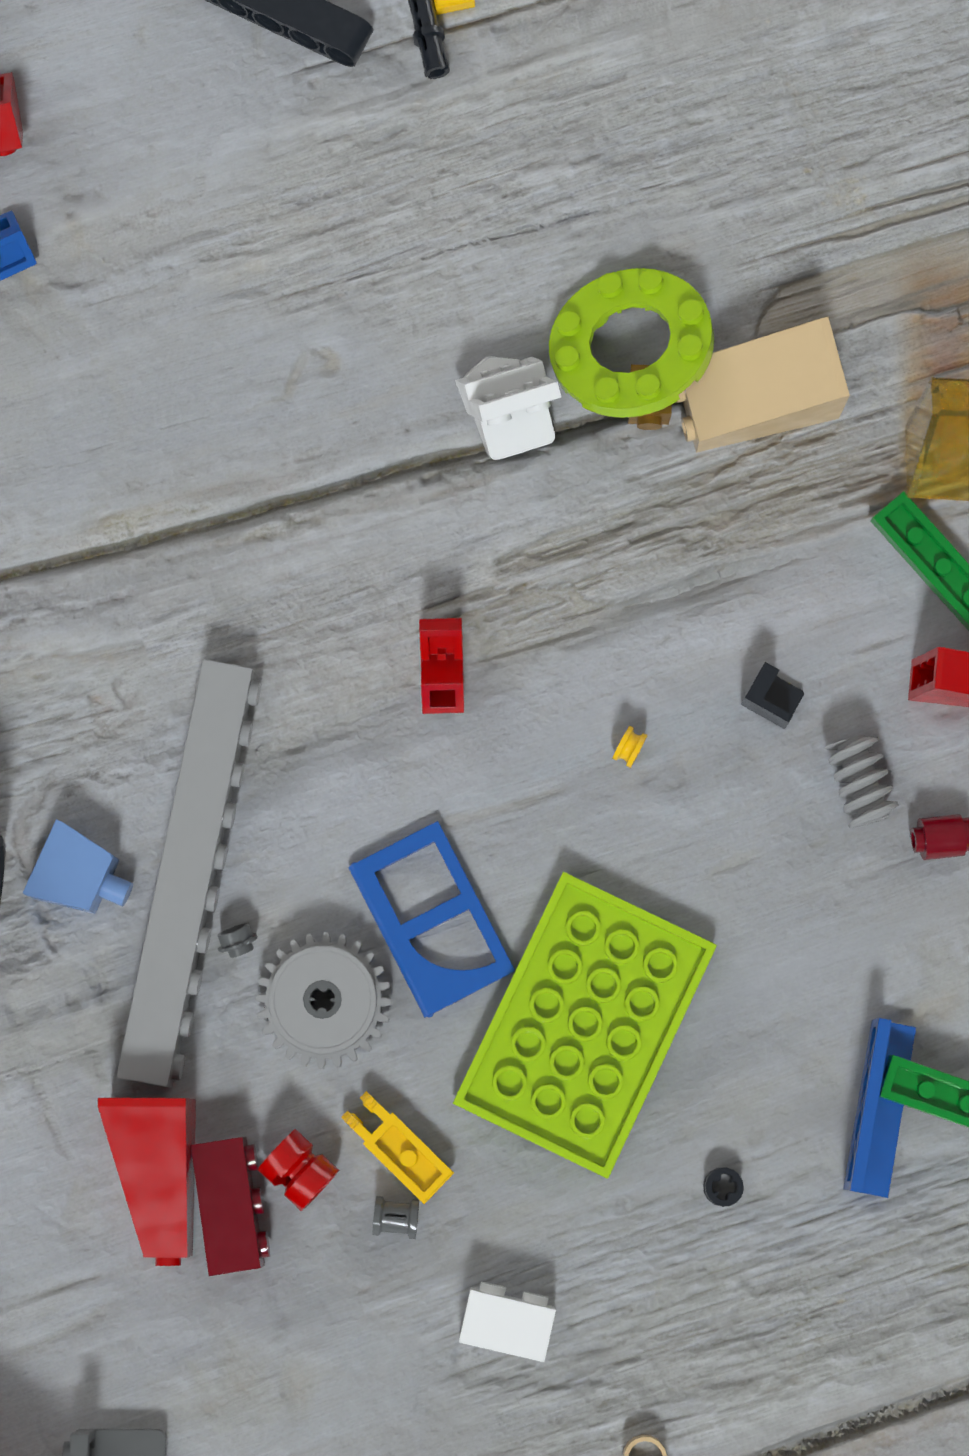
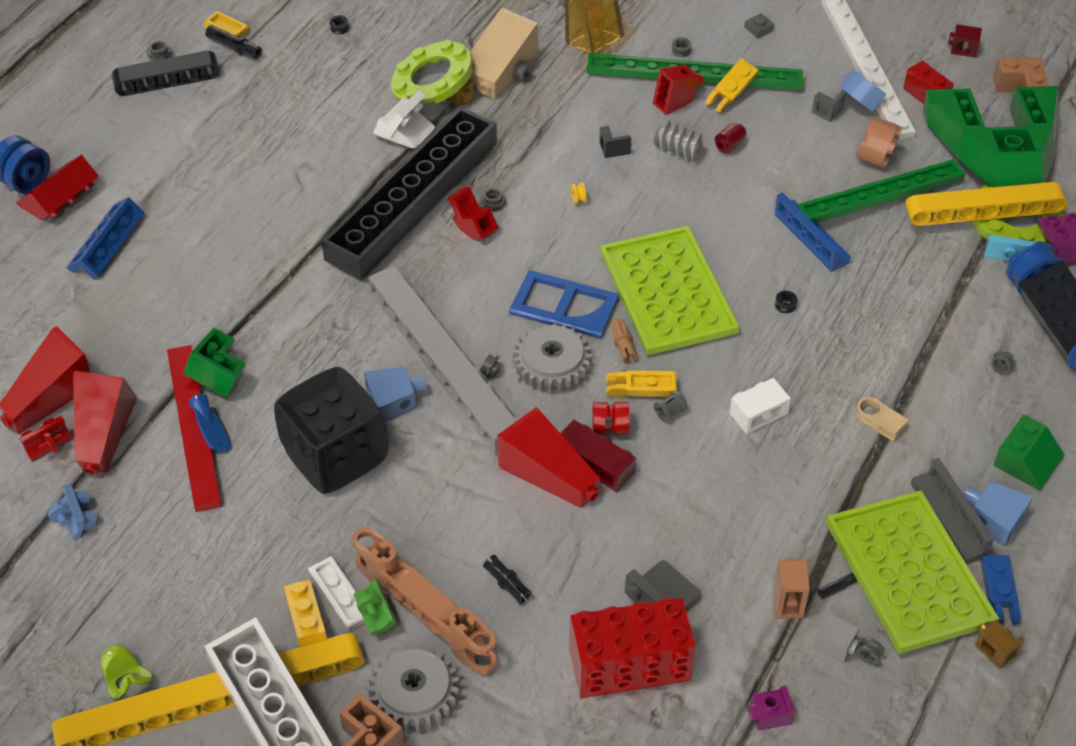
camera: 45 degrees left, 30 degrees down
(402, 546) = (409, 193): none -> black brick
(443, 1055) = (623, 340): none -> medium nougat axle
(513, 638) = (493, 198): none -> dark grey plate
(619, 107) = (335, 21): none -> black bush
(775, 441) = (522, 71): none -> dark grey bush

